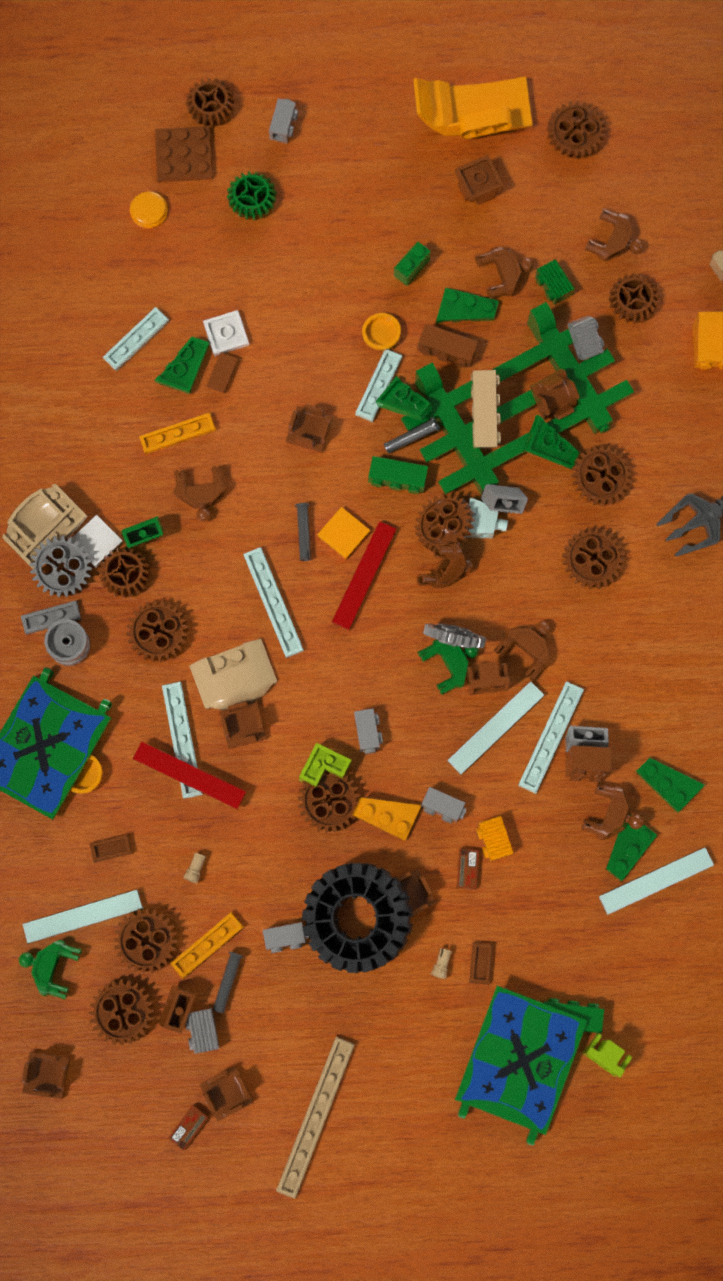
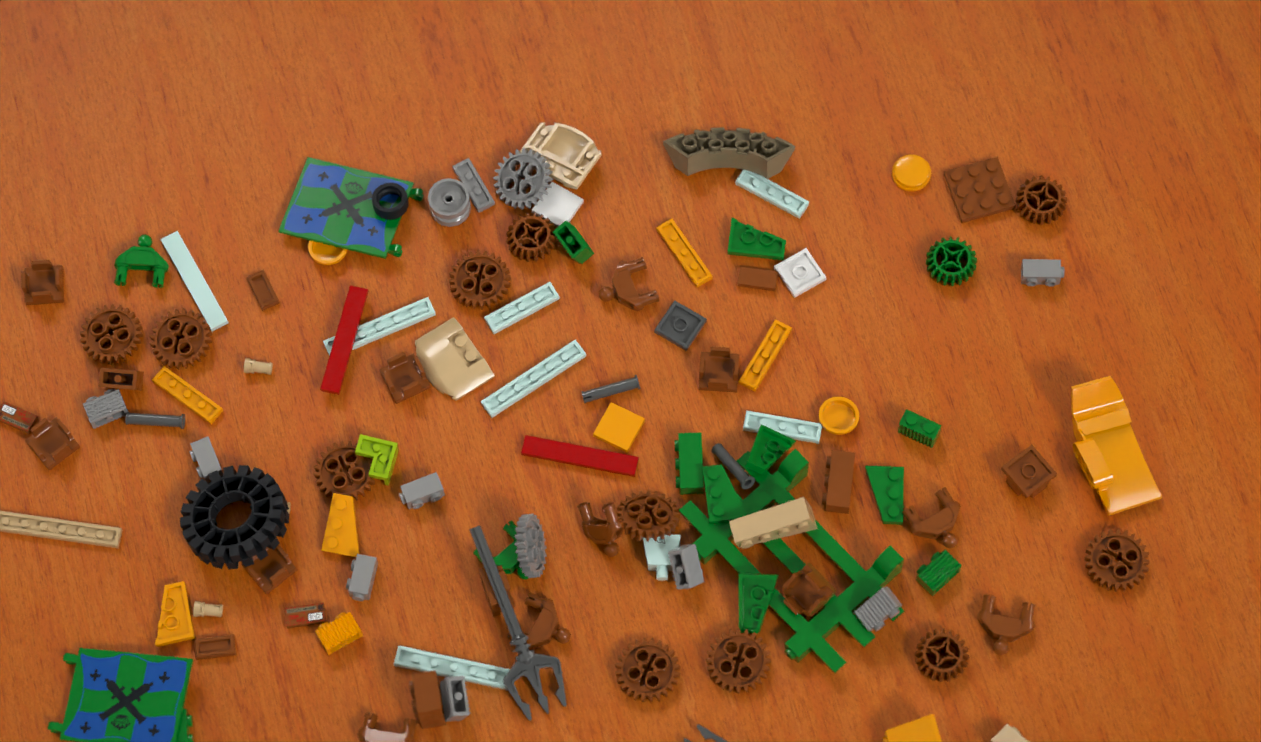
camera: 80 degrees right, 10 degrees down
(40, 690) = (386, 189): none -> black tyre
(81, 365) = (729, 150): none -> dark tan brick
(196, 598) = (521, 307): none -> light aqua tile
(252, 454) = (680, 325): none -> dark grey tile
(302, 383) = (765, 355): none -> light orange tile
(442, 997) = (175, 617): none -> light orange wing
(443, 451) = (721, 496): none -> green wing
(495, 728) = (452, 613): light aqua tile -> none
(565, 664) = (527, 661): none -> dark grey piece

